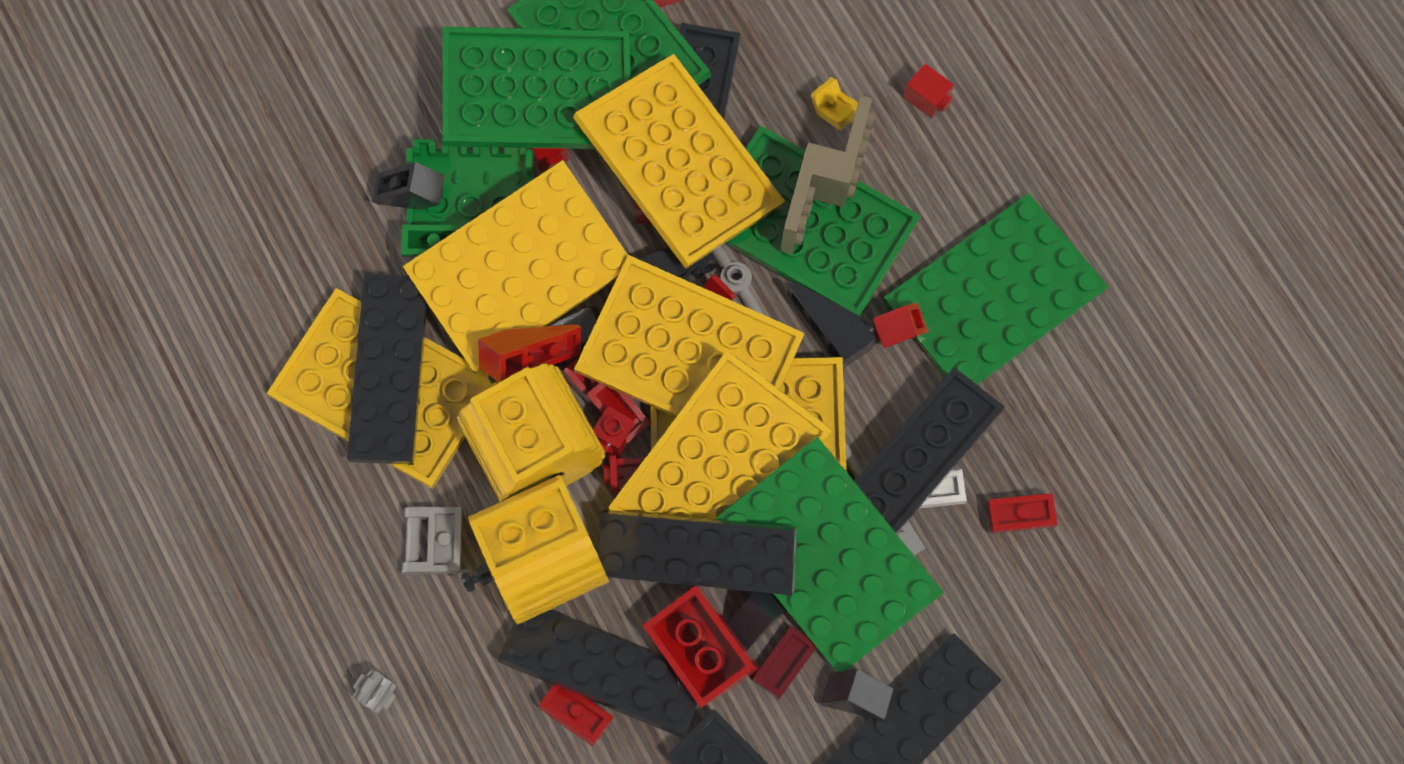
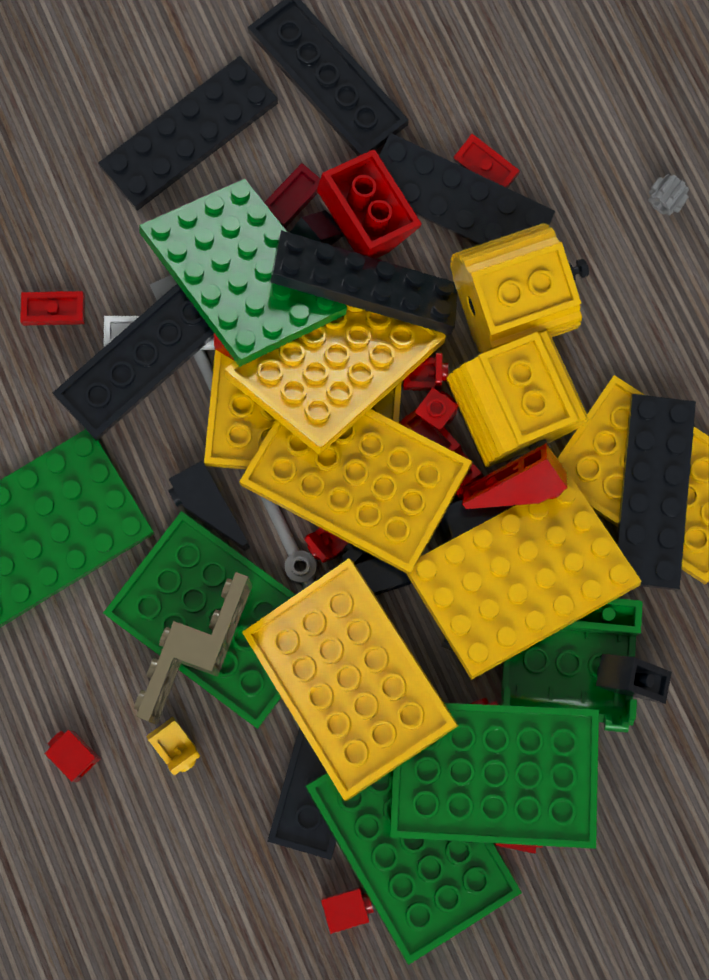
camera: 170 degrees left, 5 degrees up
(444, 540) = (602, 327): light grey plate -> none
(857, 694) = (232, 156): black slope -> none
(899, 325) = (141, 493): red brick -> none

